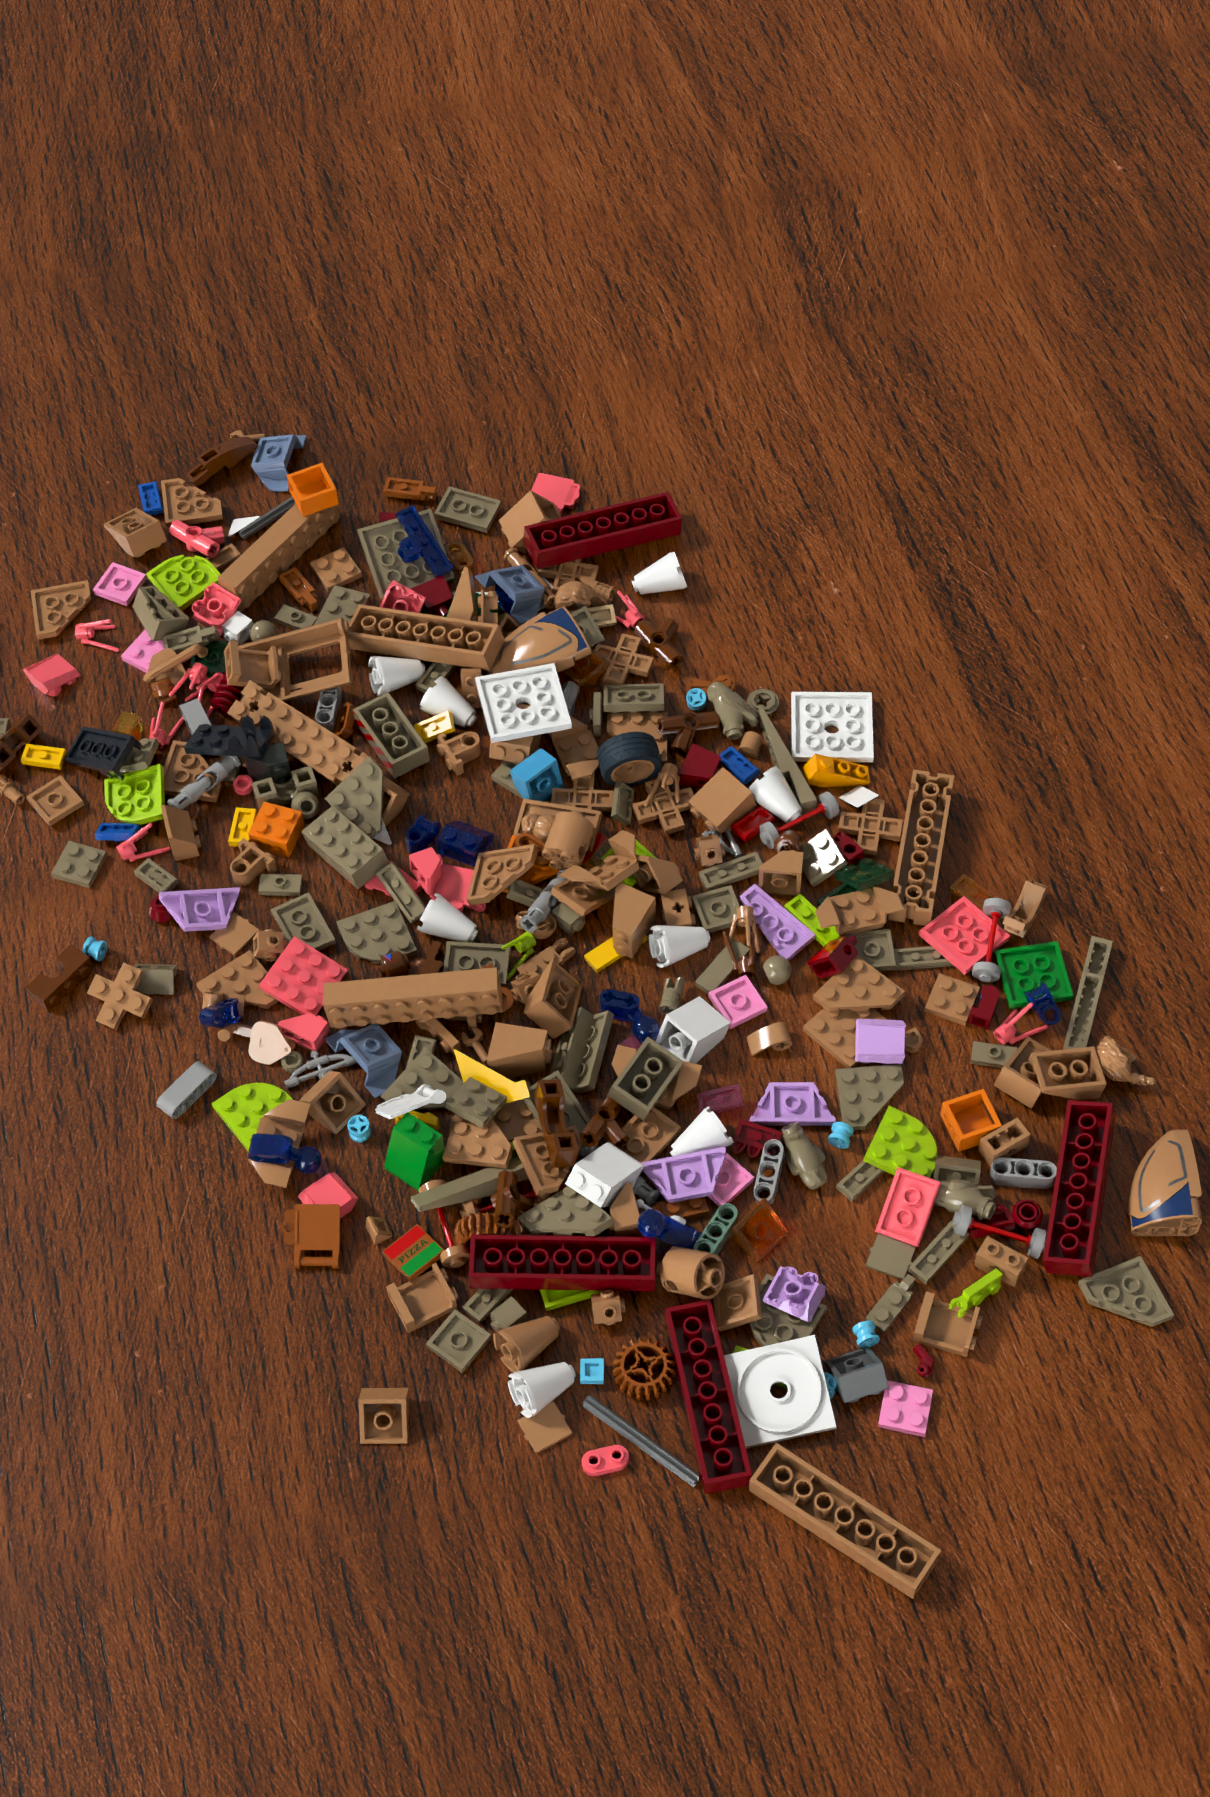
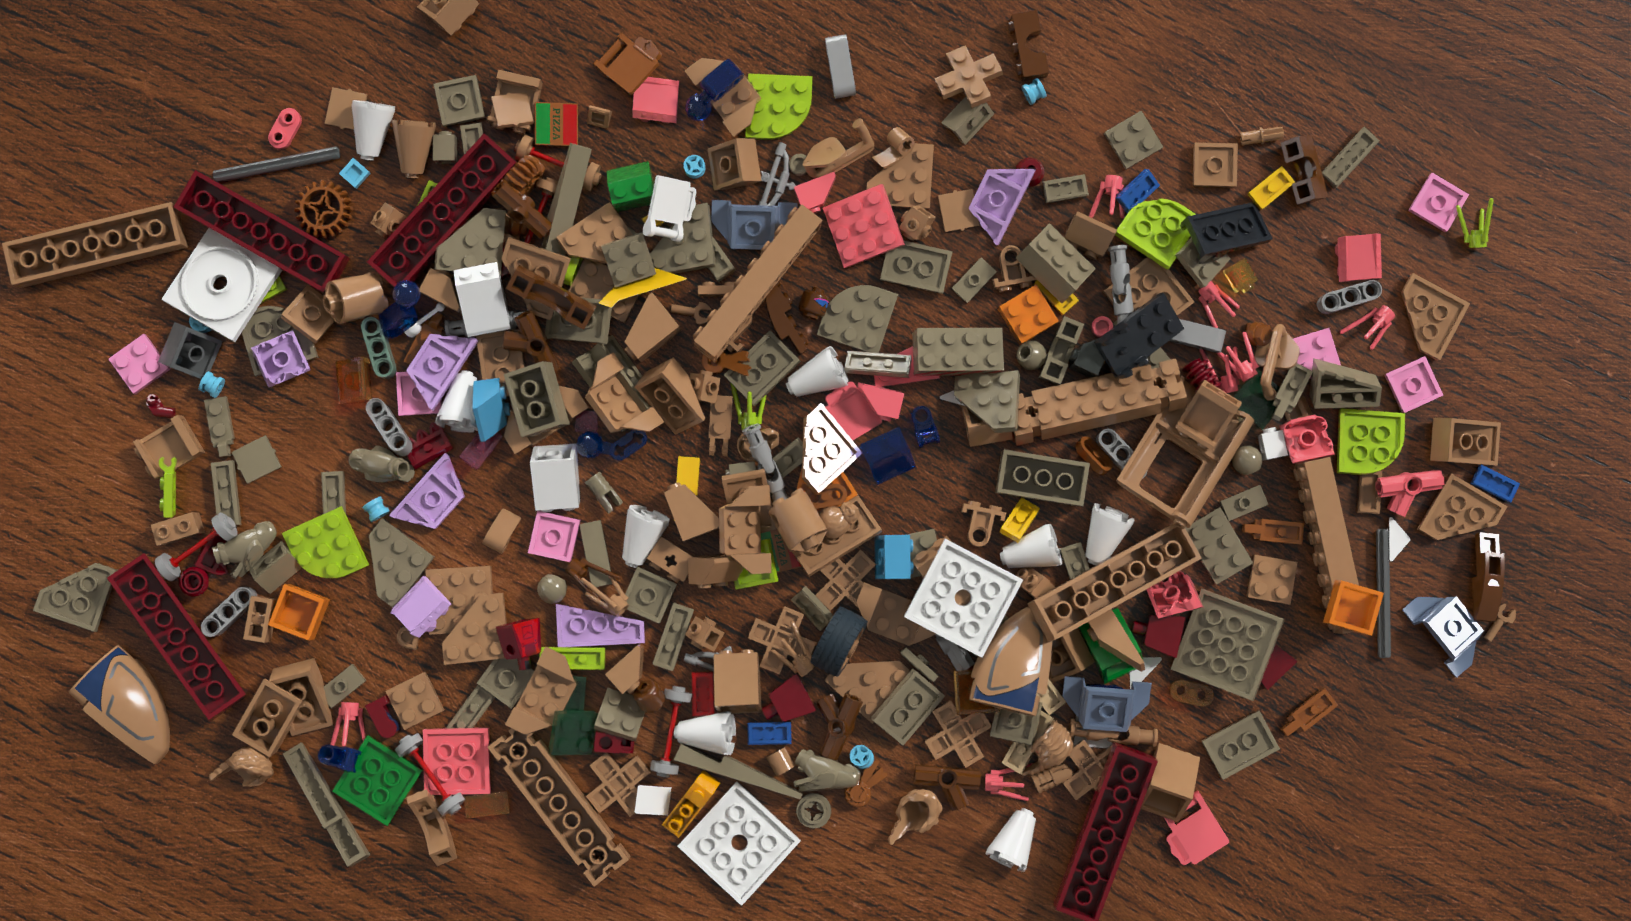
camera: 125 degrees right, 30 degrees up
(87, 658) = (1358, 292): none -> light grey beam
(220, 834) = (1055, 263): none -> dark tan brick
(224, 1014) = (880, 135): clear blue piece -> none
(421, 543) = (1221, 662): clear blue plate -> none
(430, 1288) = (512, 110): none -> medium nougat piece
(488, 603) = (1084, 646): medium nougat hinge -> none
(598, 1026) = (613, 401): none -> medium nougat piece
(683, 1110) = (489, 407): none -> dark azure slope
(699, 640) = (916, 812): none -> medium nougat hair
(908, 1207) = (273, 501): coral tile -> none

